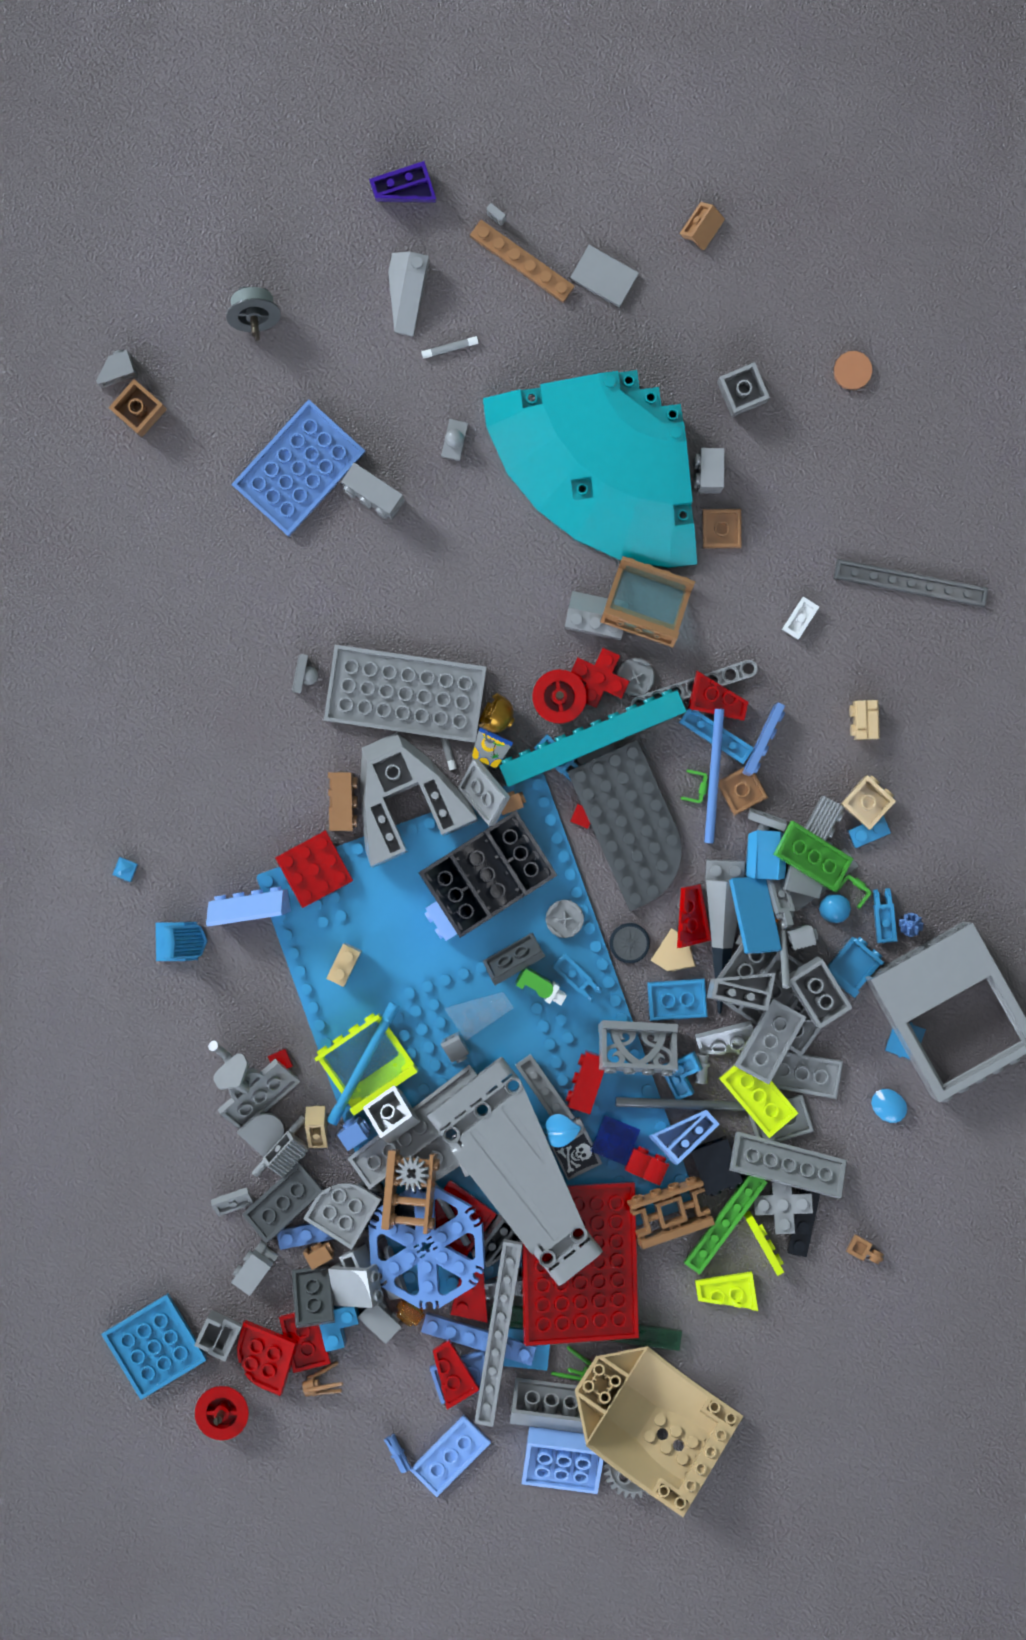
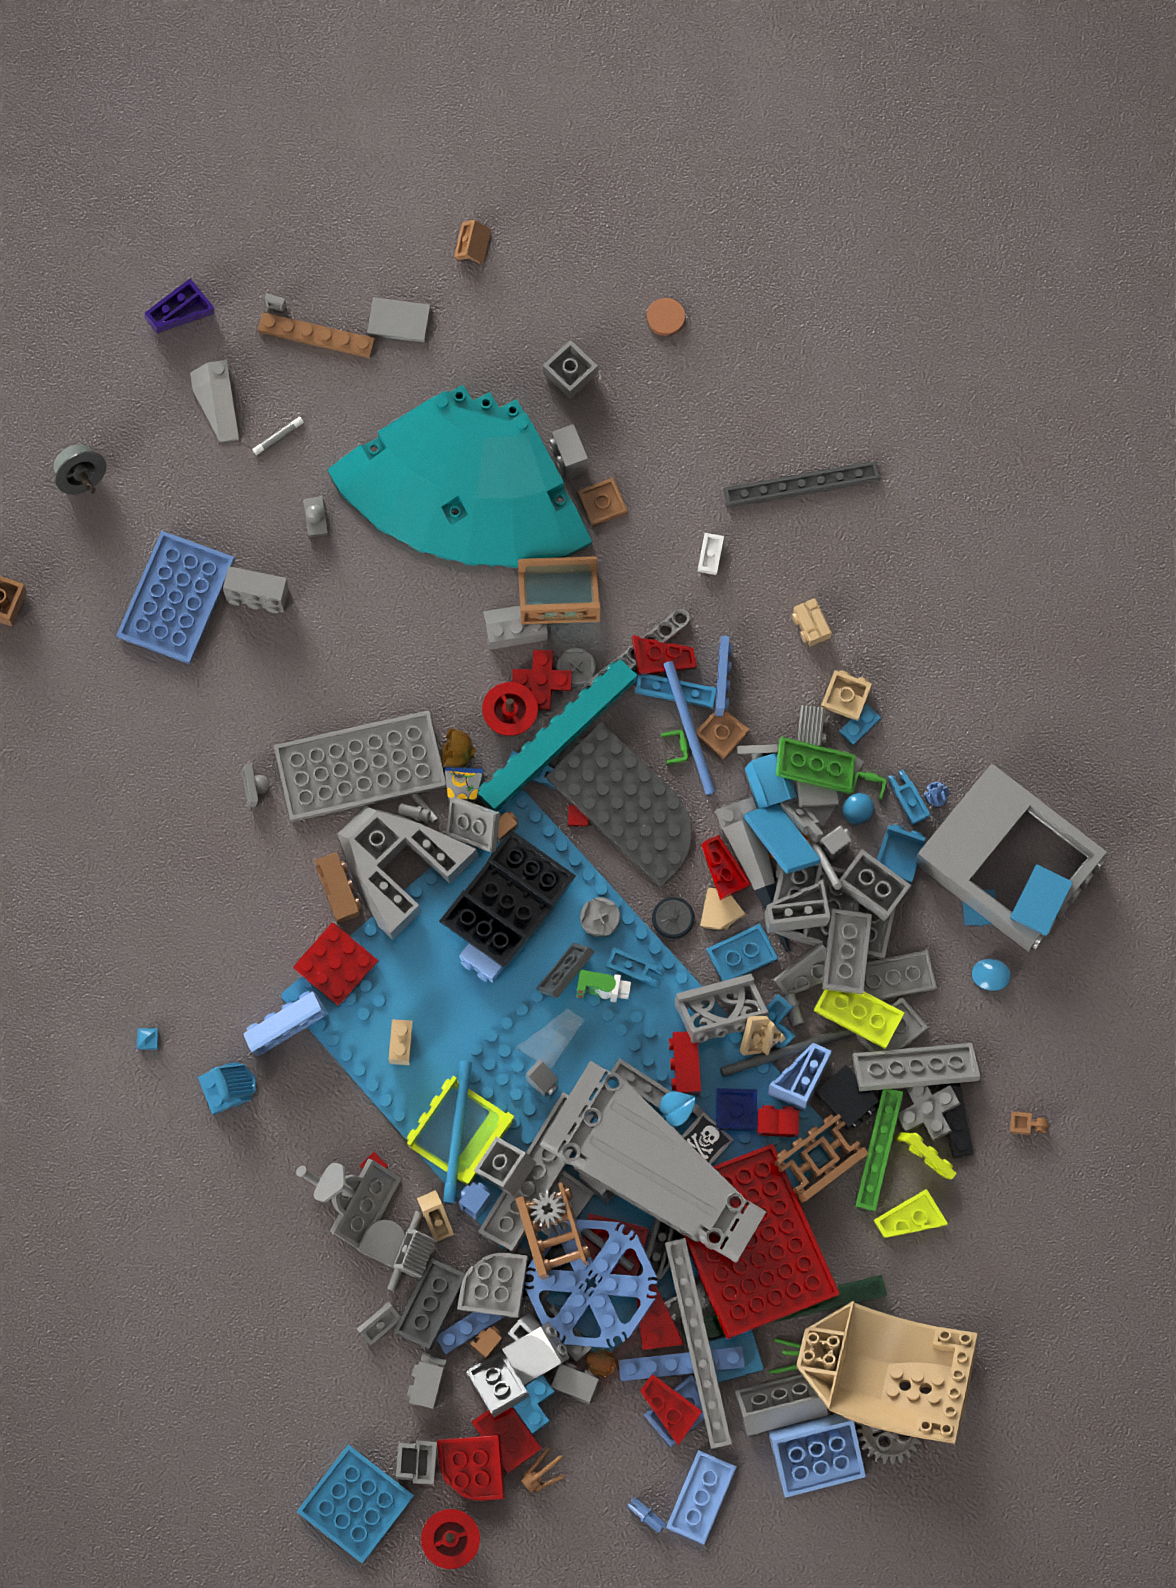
camera: 25 degrees left, 15 degrees down
(439, 758) = (418, 814): none -> light grey pin
(662, 1085) = (760, 1036): none -> tan slope
(963, 1067) = (1041, 900): none -> dark azure tile

